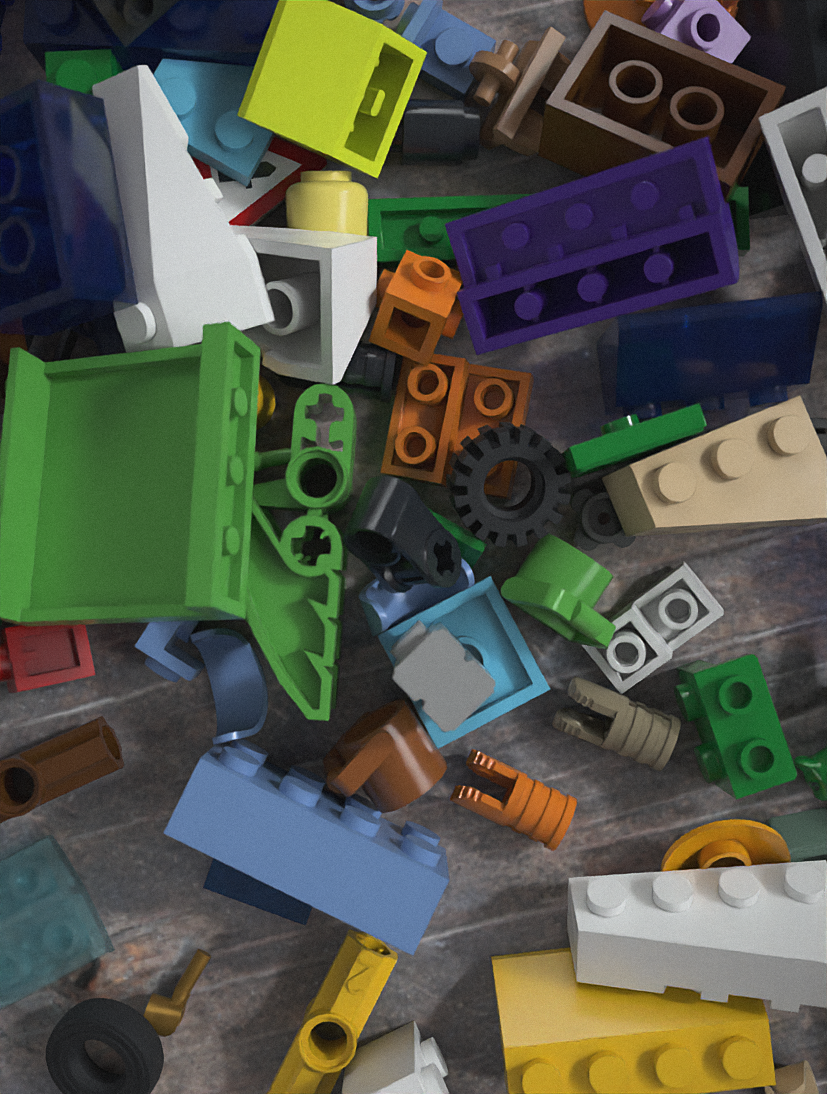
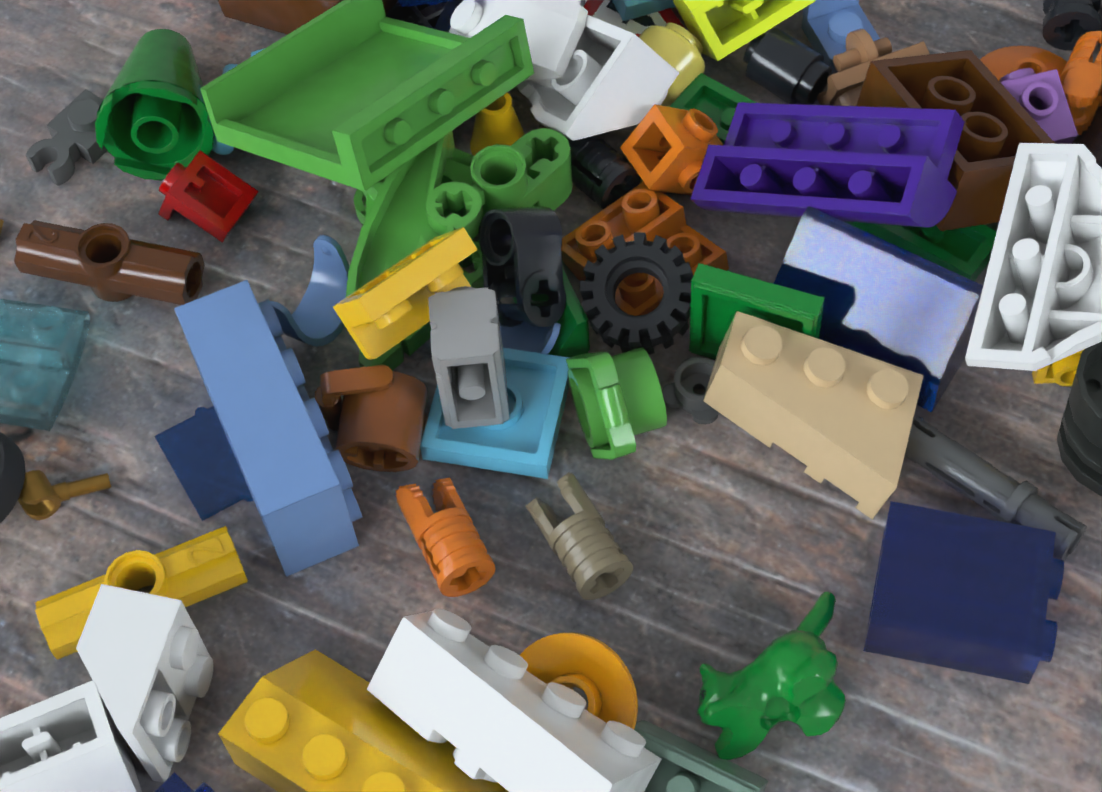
camera: 50 degrees right, 30 degrees down
(164, 656) = (298, 232): medium blue bracket -> none
(359, 679) = (397, 299): none -> yellow bracket
(655, 627) = (663, 496): white slope -> none
(736, 724) = (673, 588): green bracket -> none

